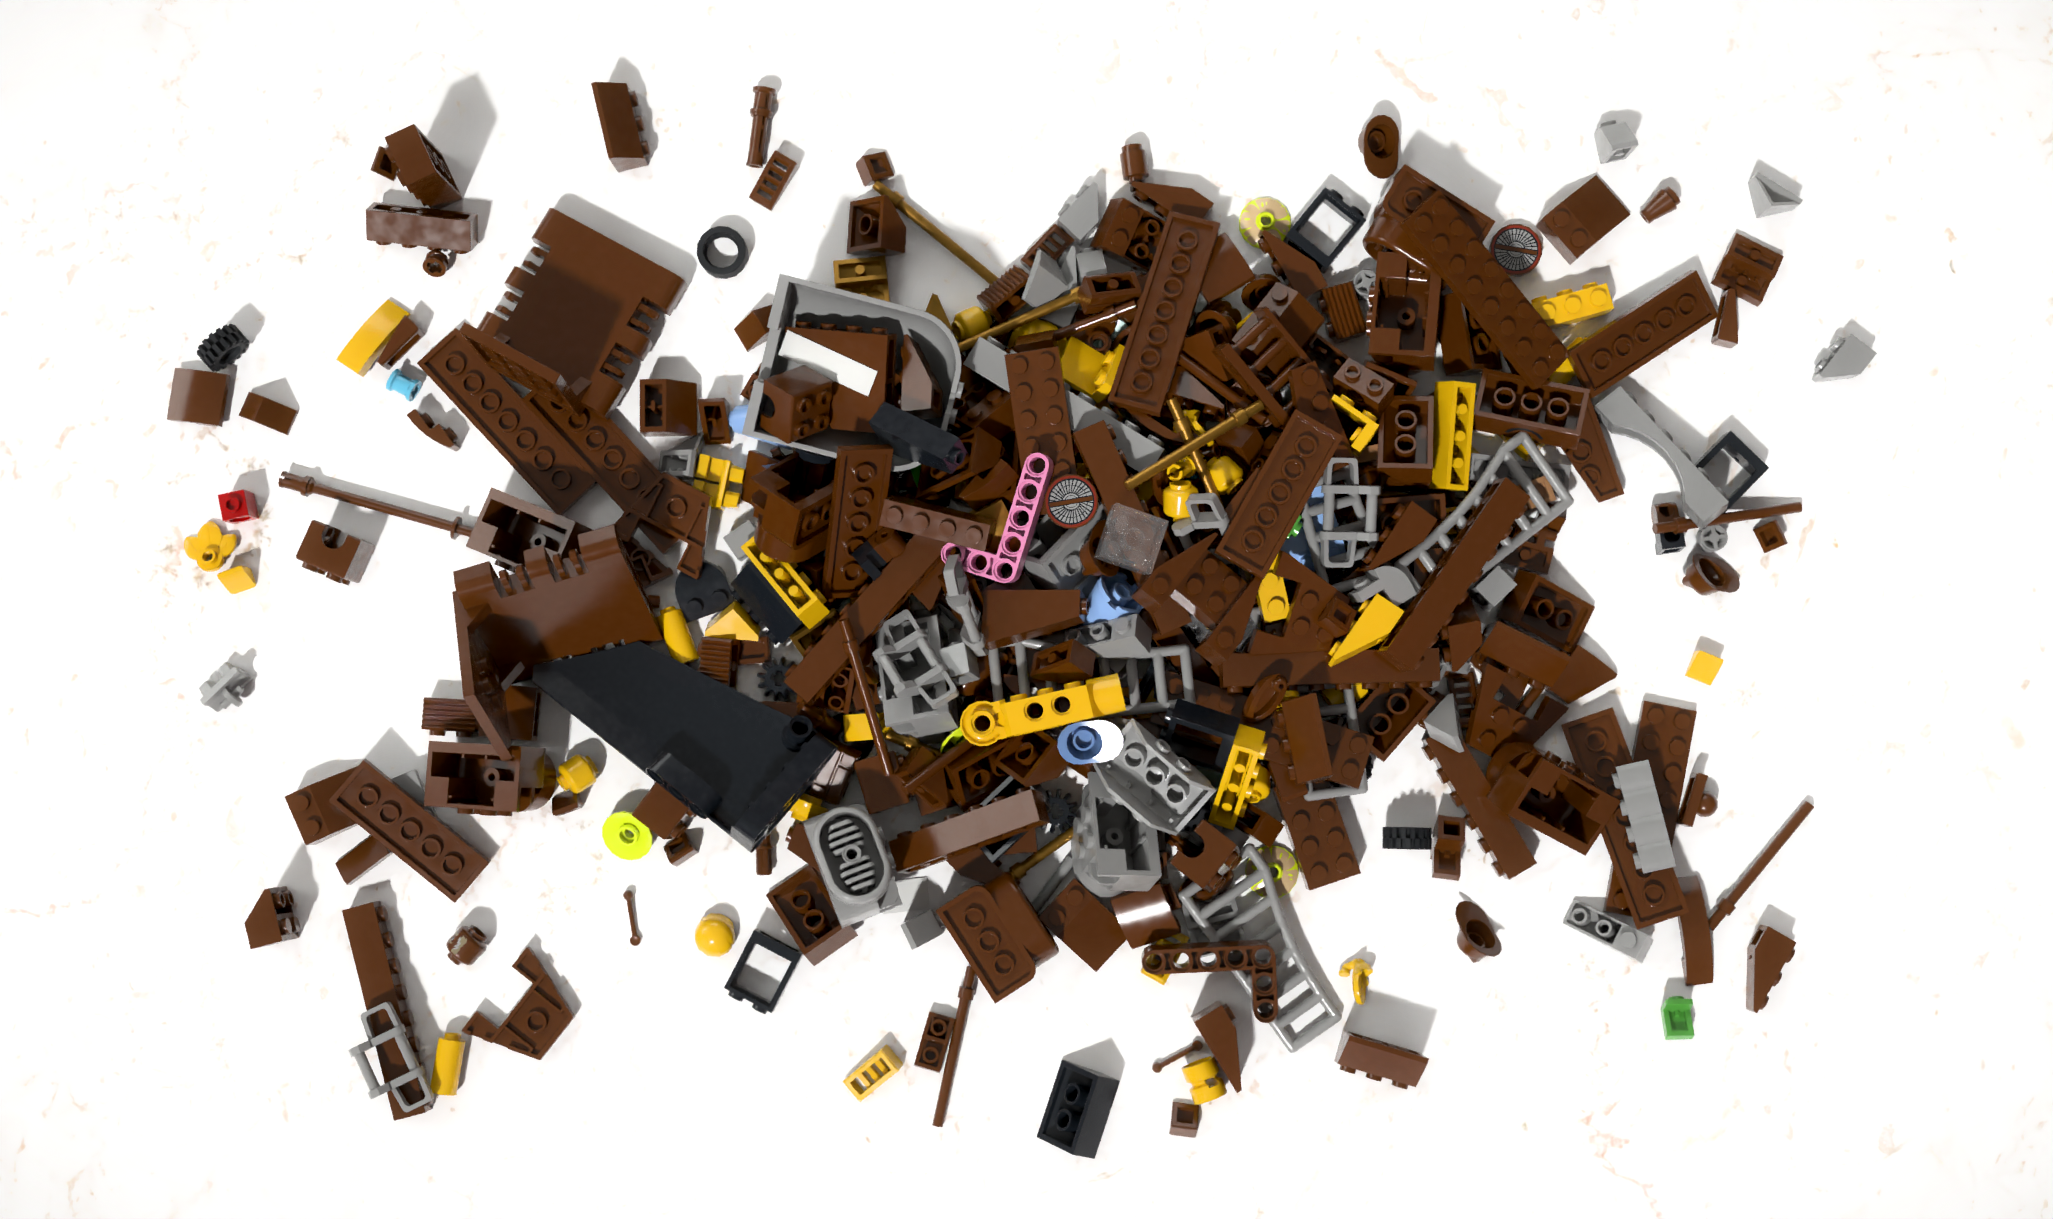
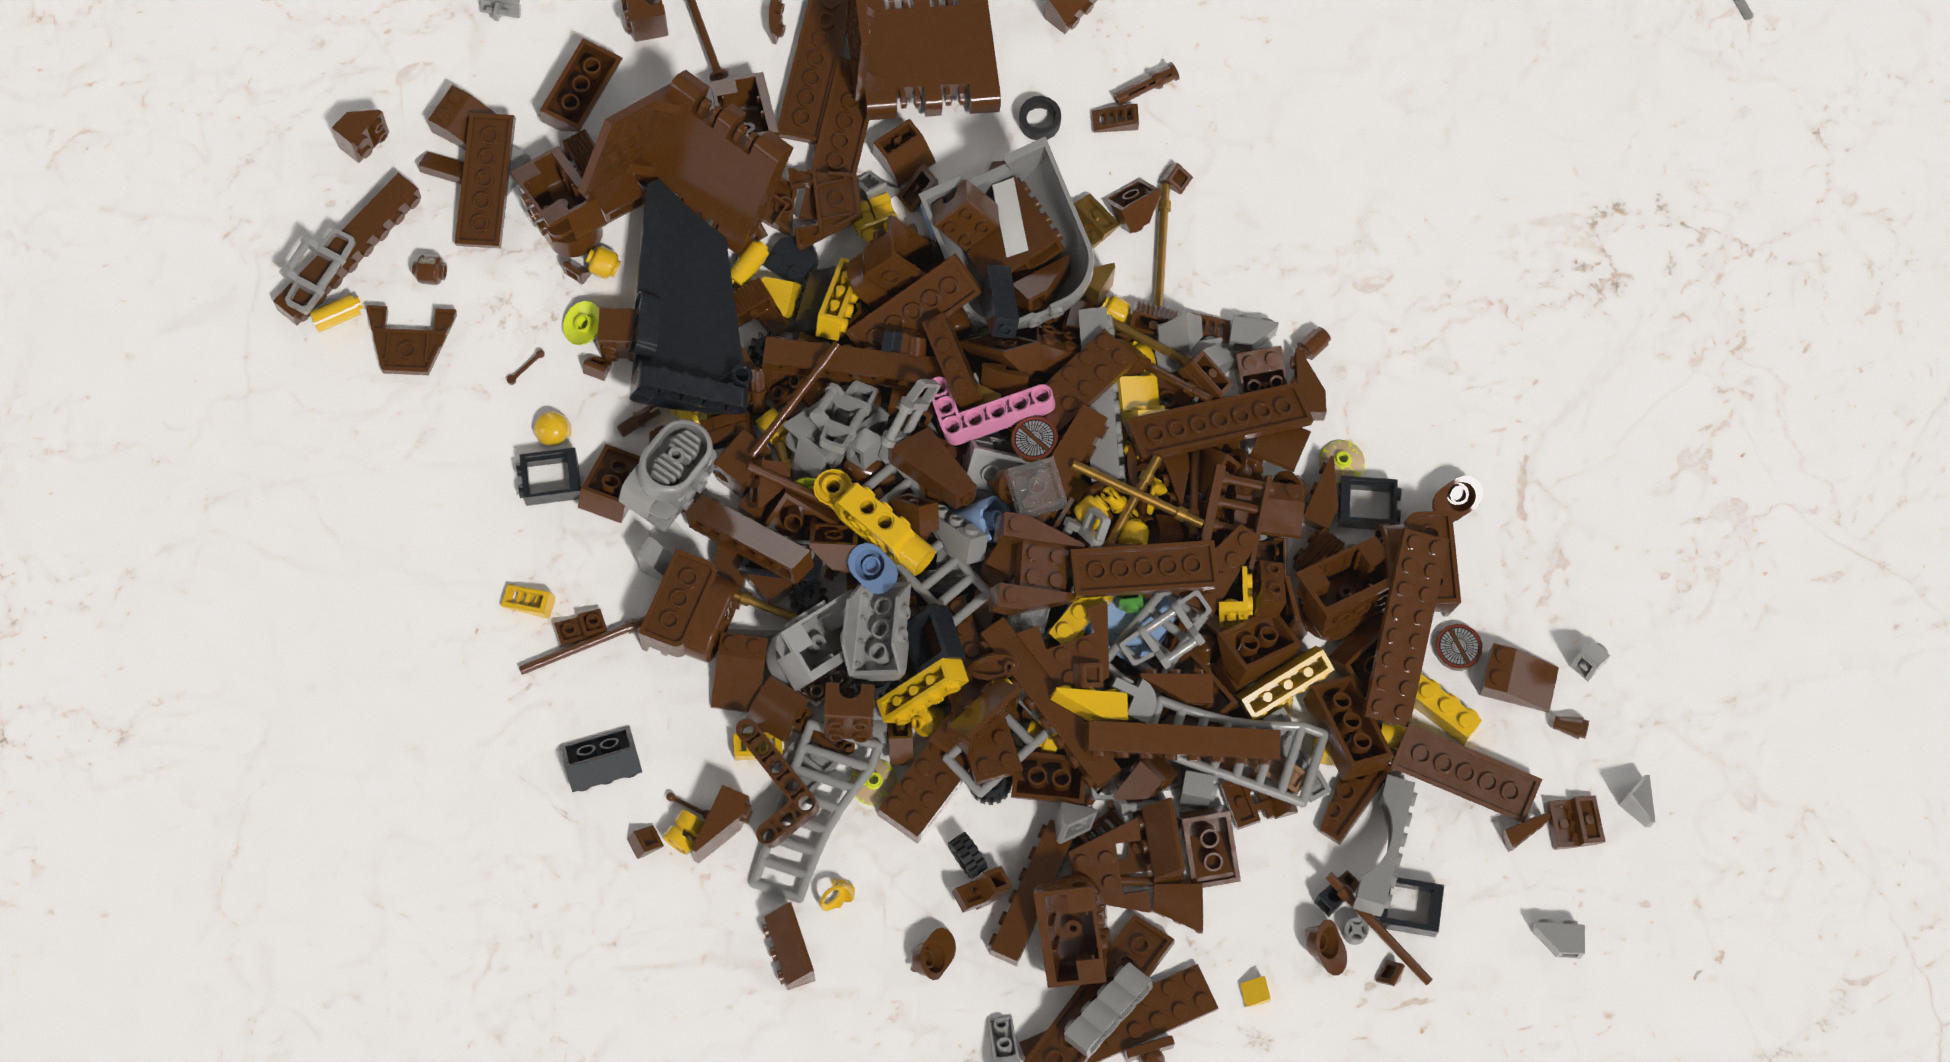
camera: 45 degrees right, 15 degrees down
(375, 672) = (579, 87): none -> reddish brown slope

